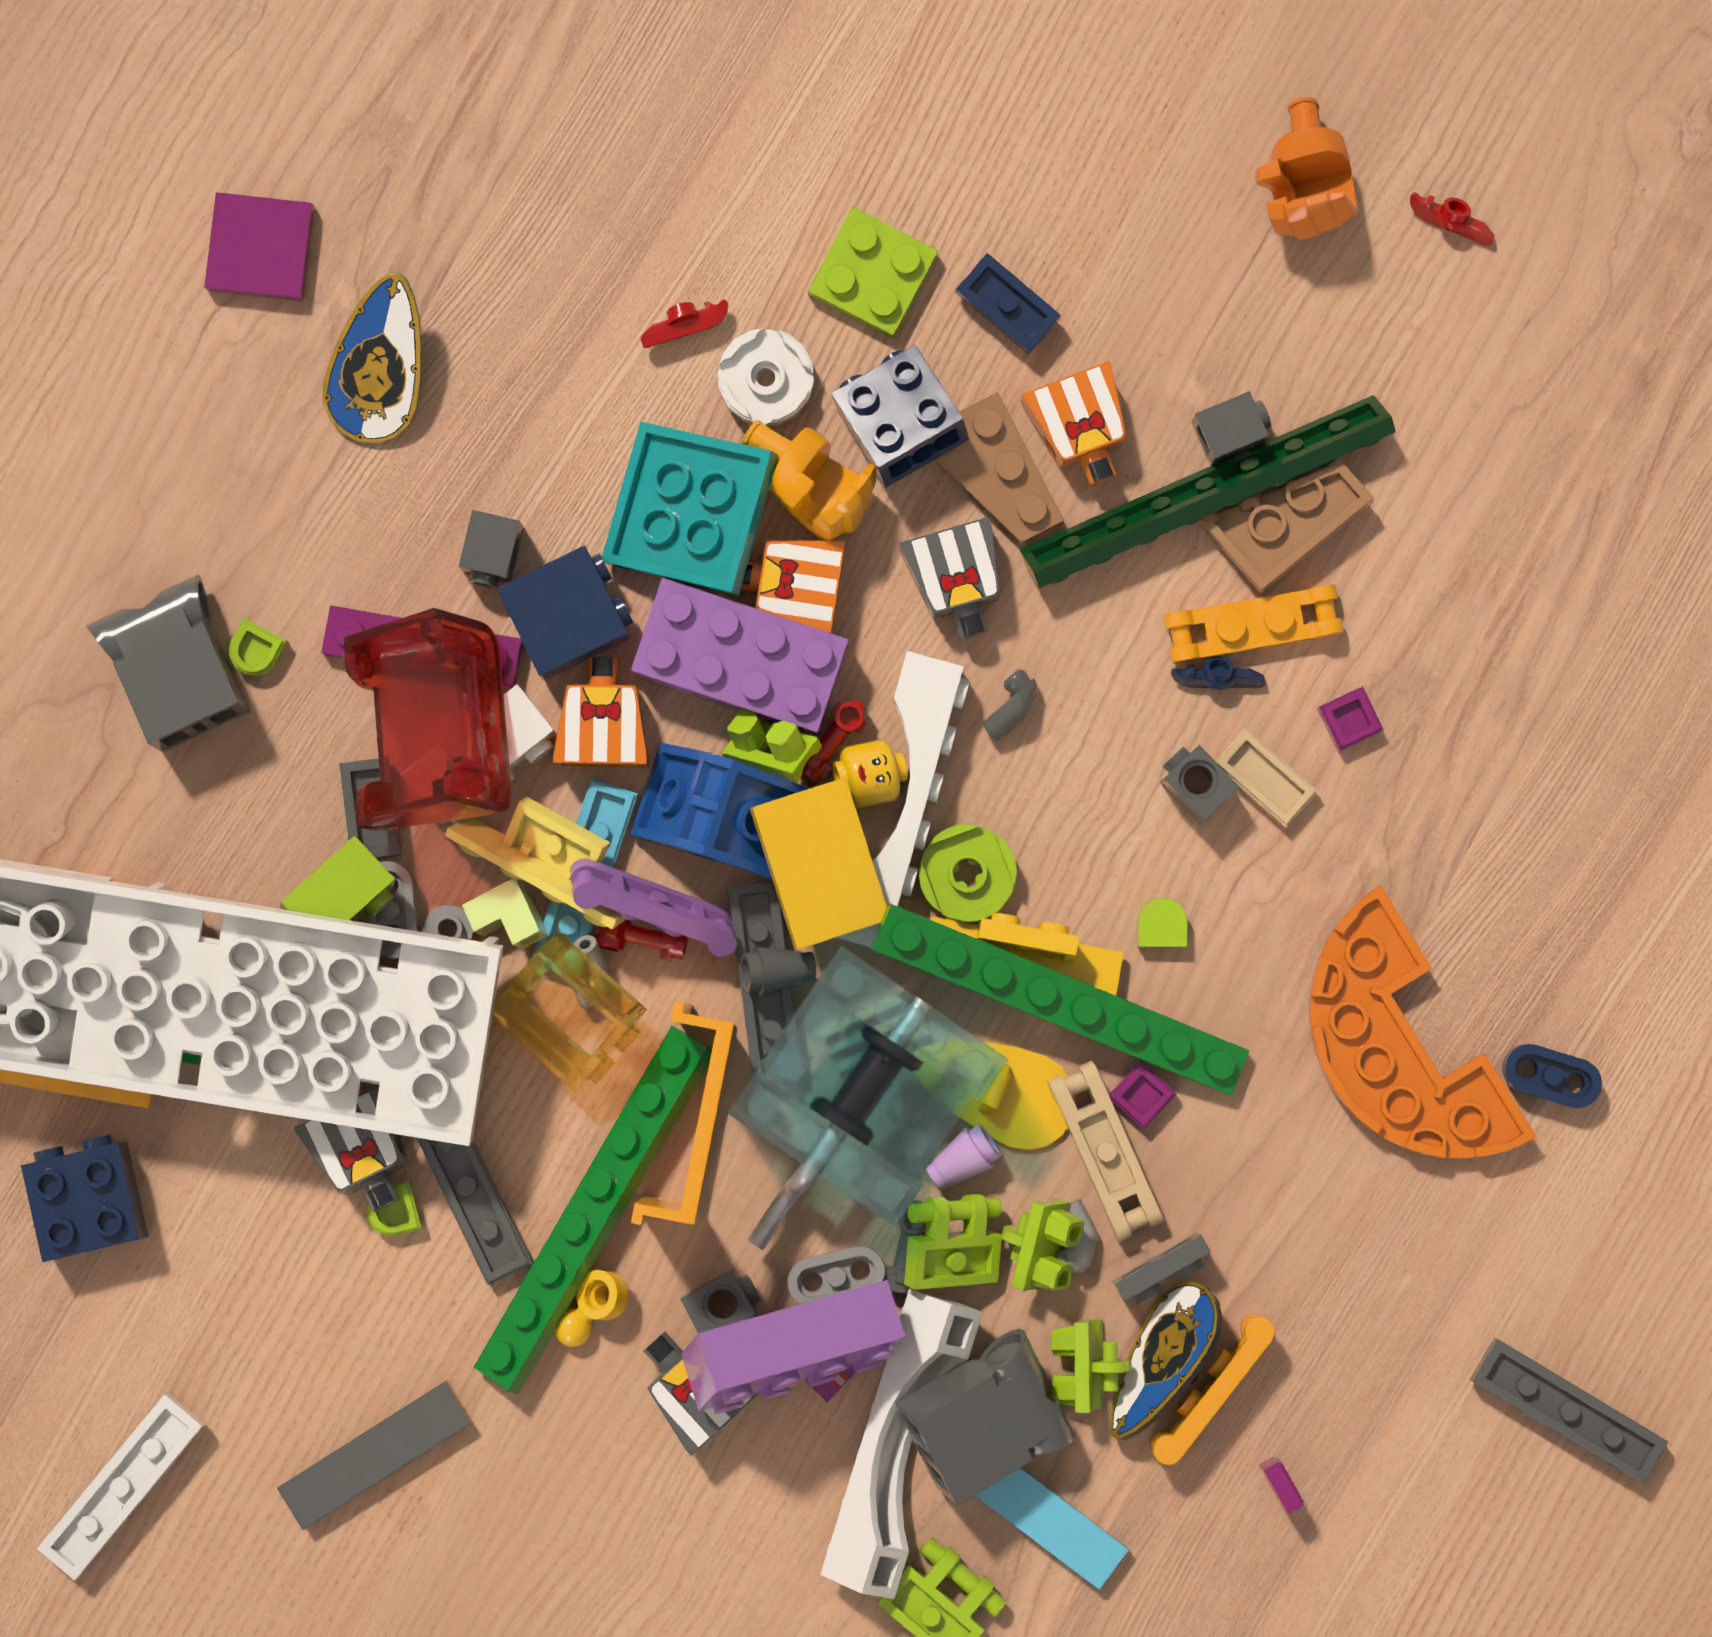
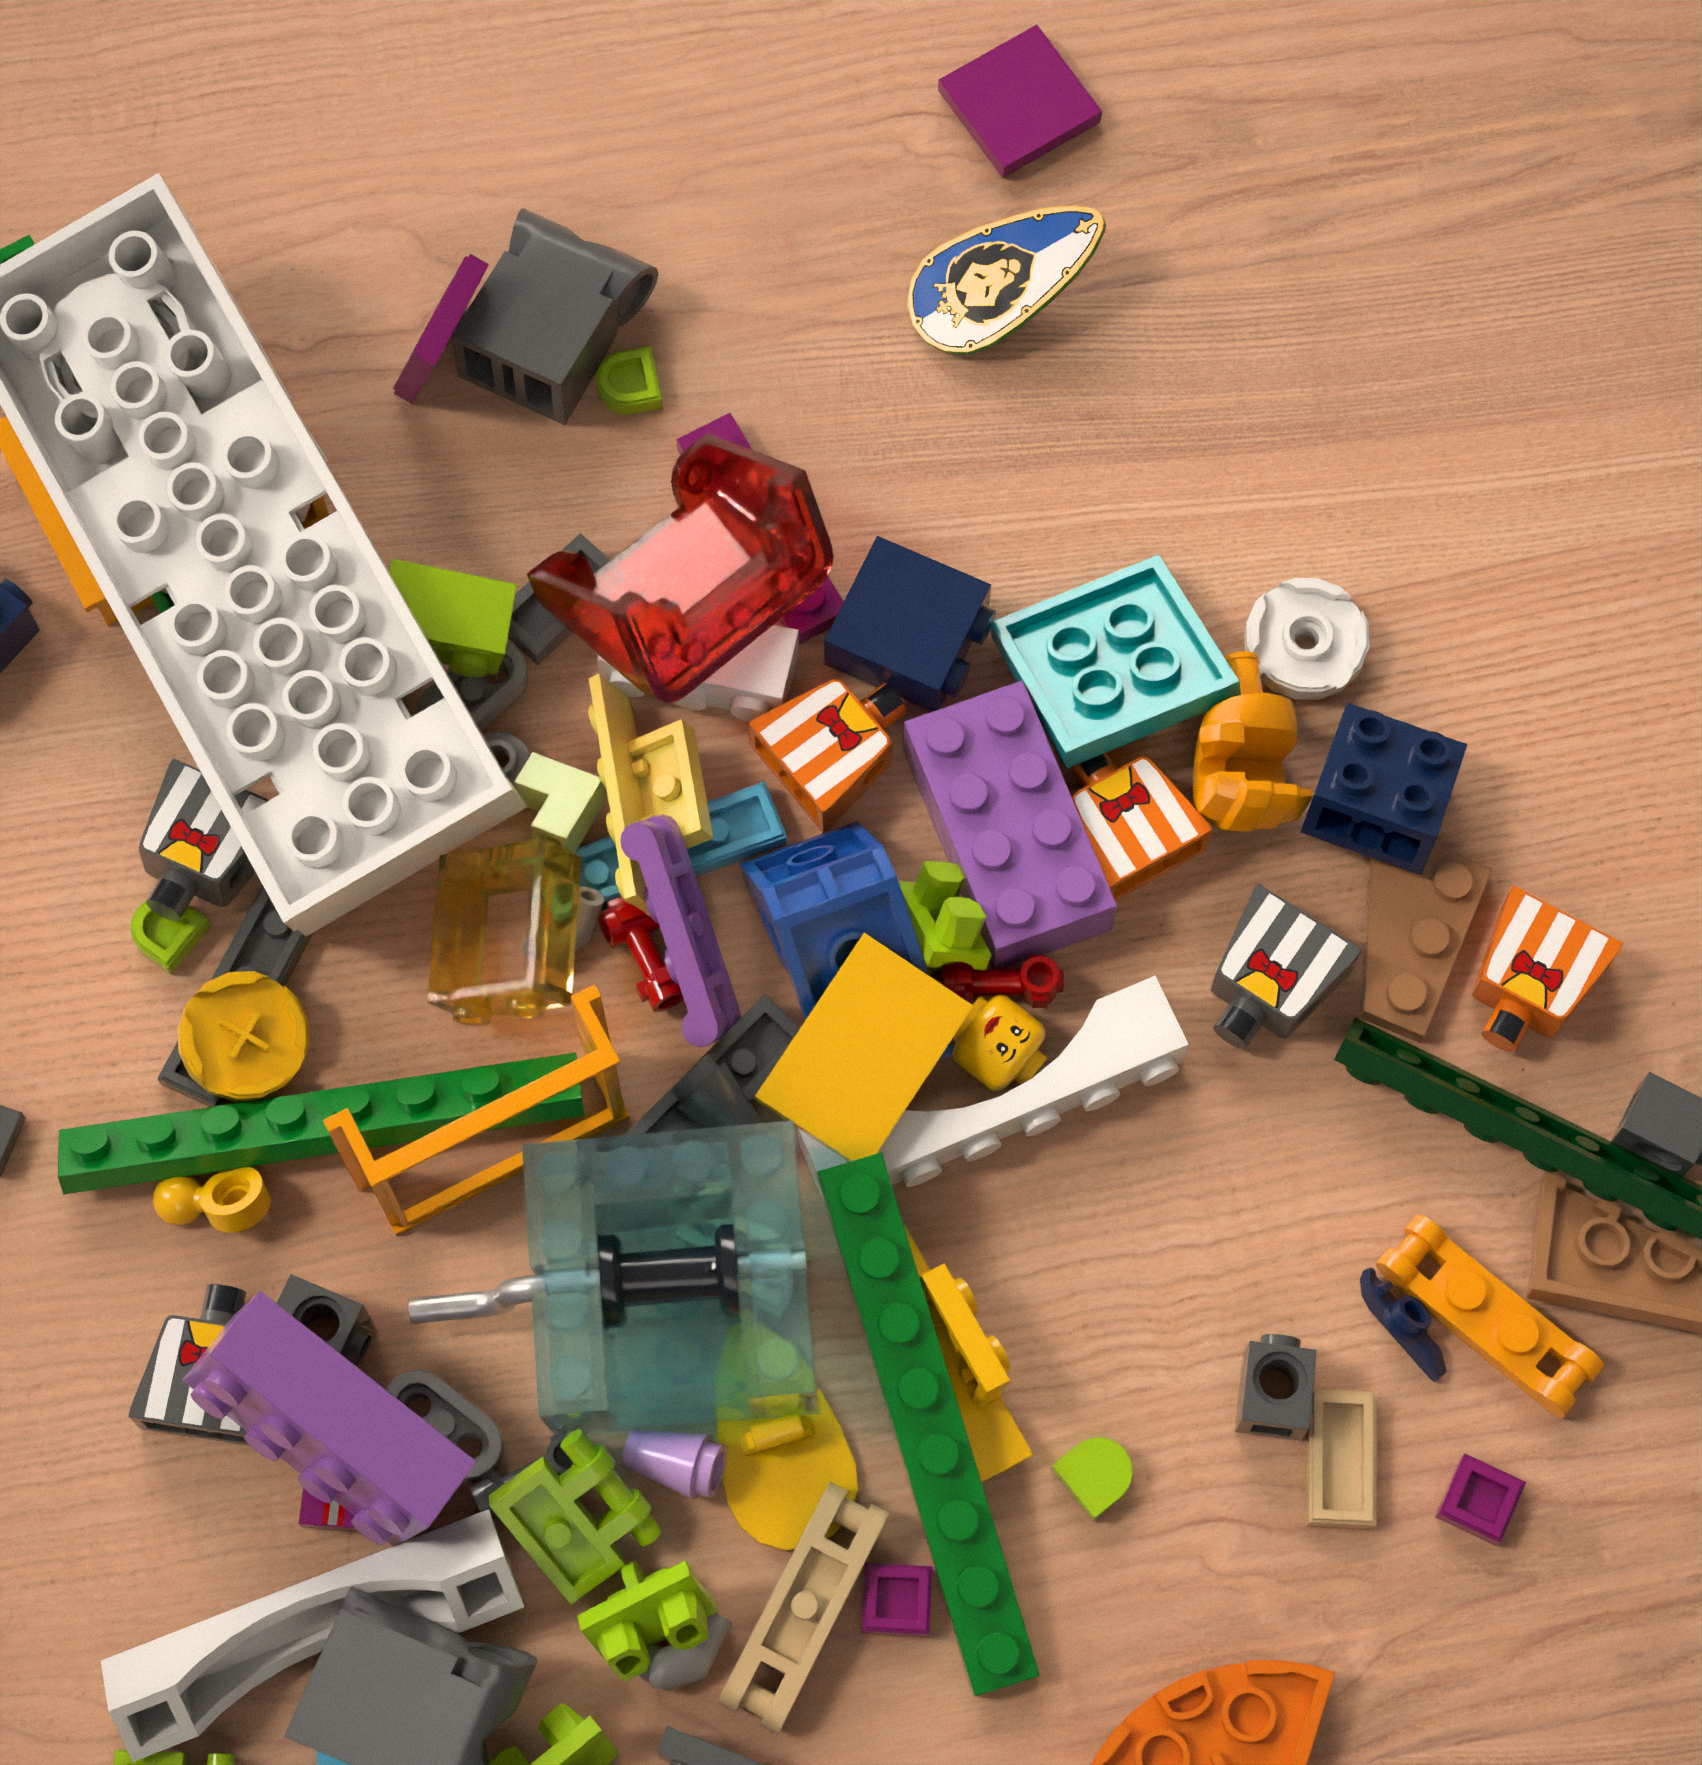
camera: 50 degrees right, 15 degrees down
(132, 744) = (440, 328): none -> magenta tile
(490, 549) = (914, 509): dark grey brick -> none
(504, 1216) = (243, 1036): none -> yellow tile
(684, 321) = (1292, 520): red piece -> none
(872, 272) = (1499, 661): lime plate -> none
(980, 848) = (970, 1189): lime plate -> none
(1007, 303) = (1587, 810): dark blue plate -> none
(1015, 708) = (1192, 1139): dark grey arm -> none

